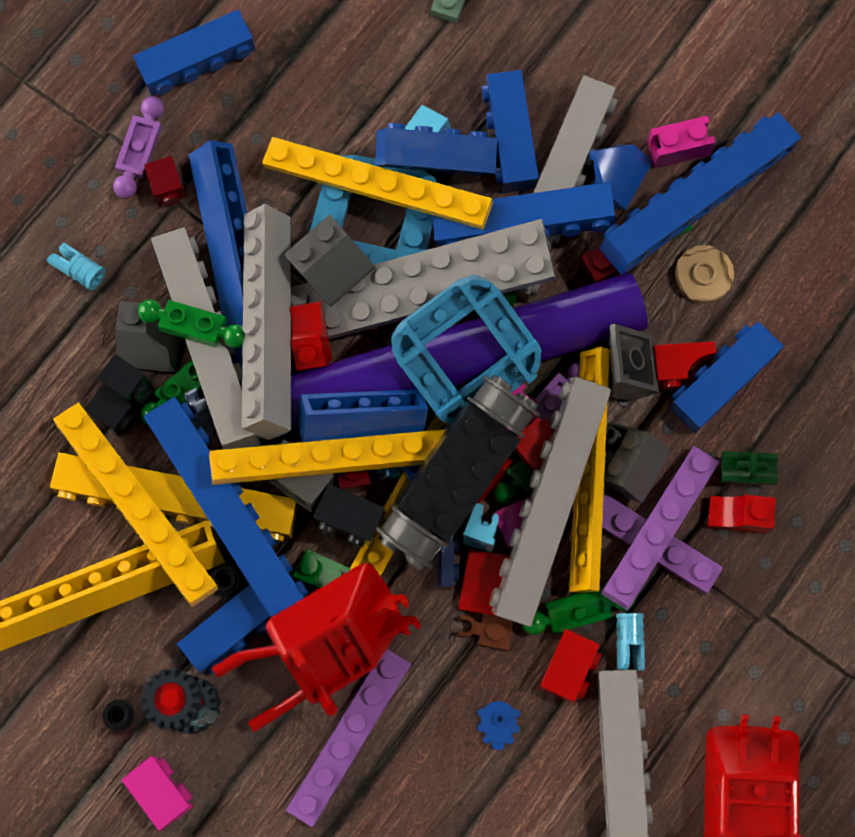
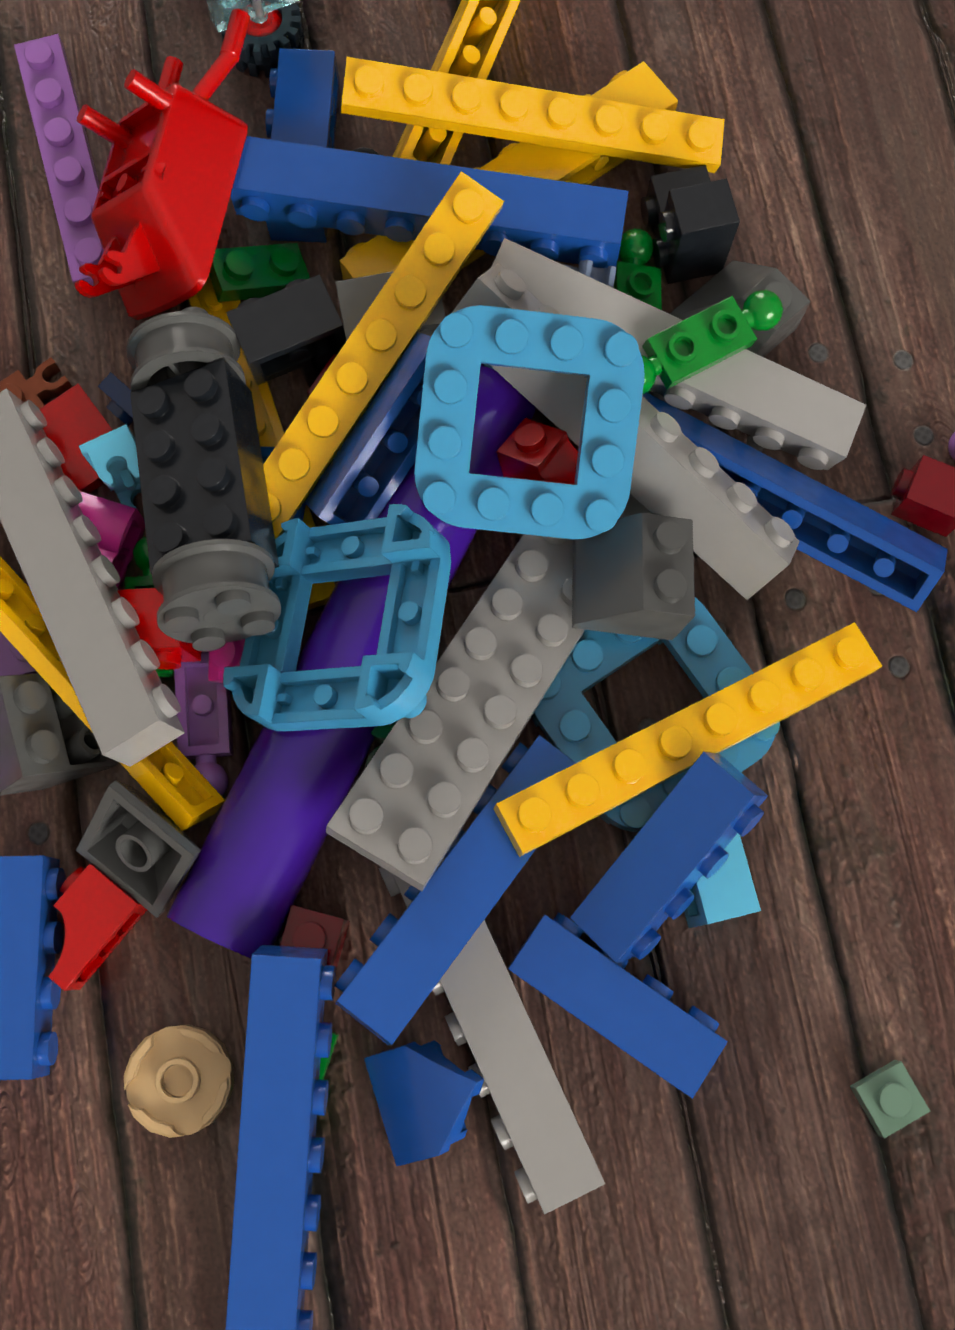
camera: 130 degrees right, 0 degrees up
(78, 267) = (900, 310): medium azure hinge -> none
(294, 389) = (540, 343): none -> dark azure plate
(680, 142) = (383, 1234): dark pink brick -> none

